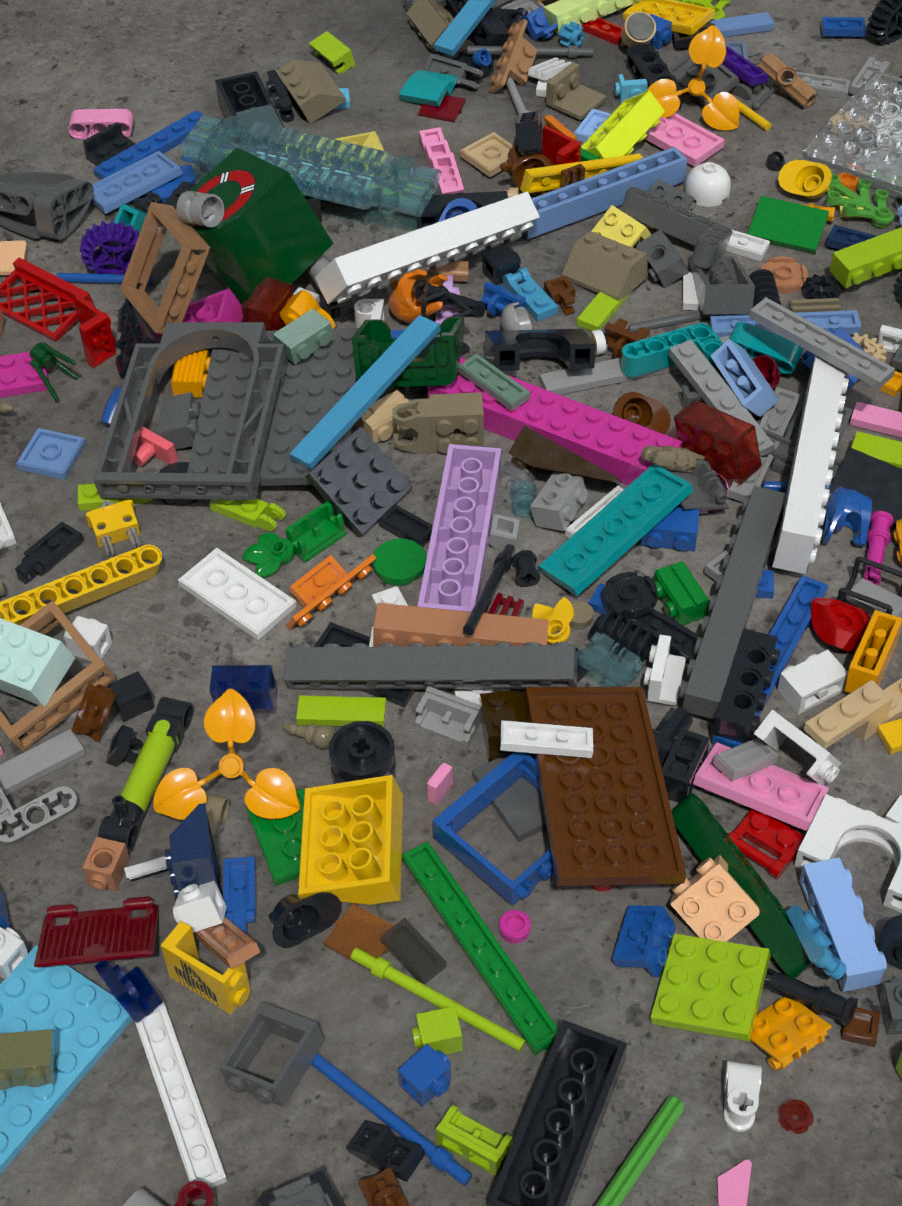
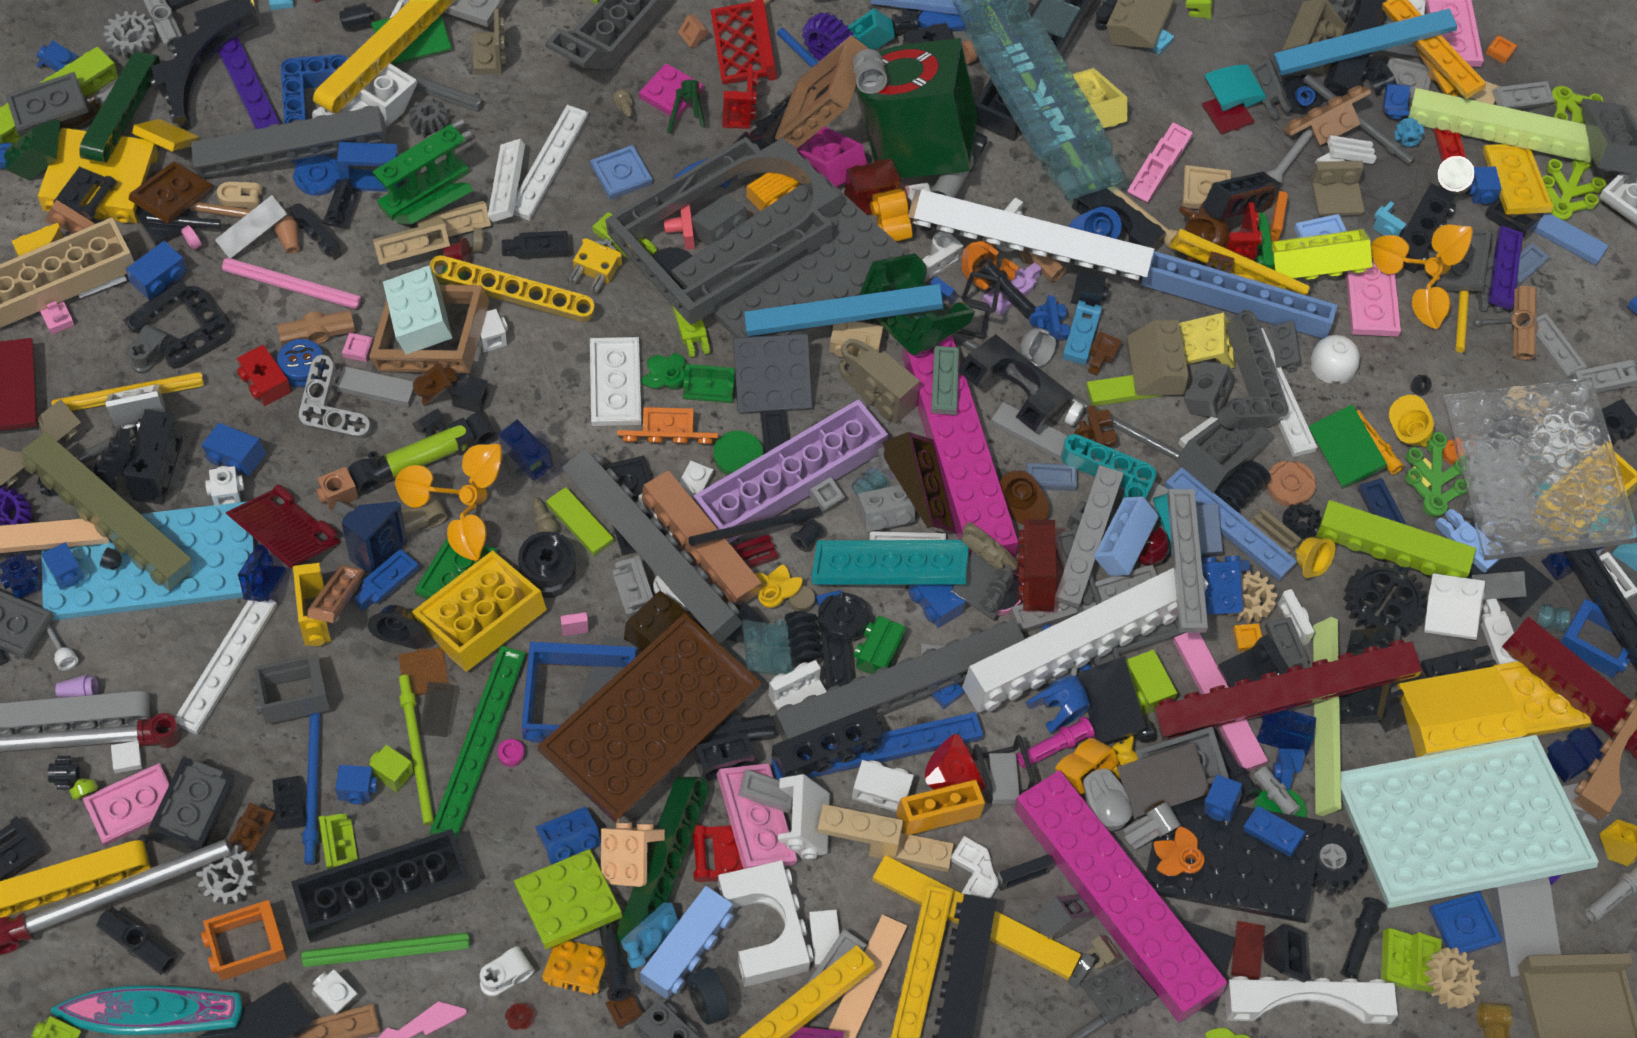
camera: 40 degrees right, 10 degrees up
(200, 906) = (346, 565): white brick -> none
(304, 335) = (857, 229): sand green brick -> none
(546, 739) = (647, 656): white tile -> none
(640, 384) = (1053, 476): none -> sand blue tile
(862, 297) = (1315, 556): none -> yellow piece

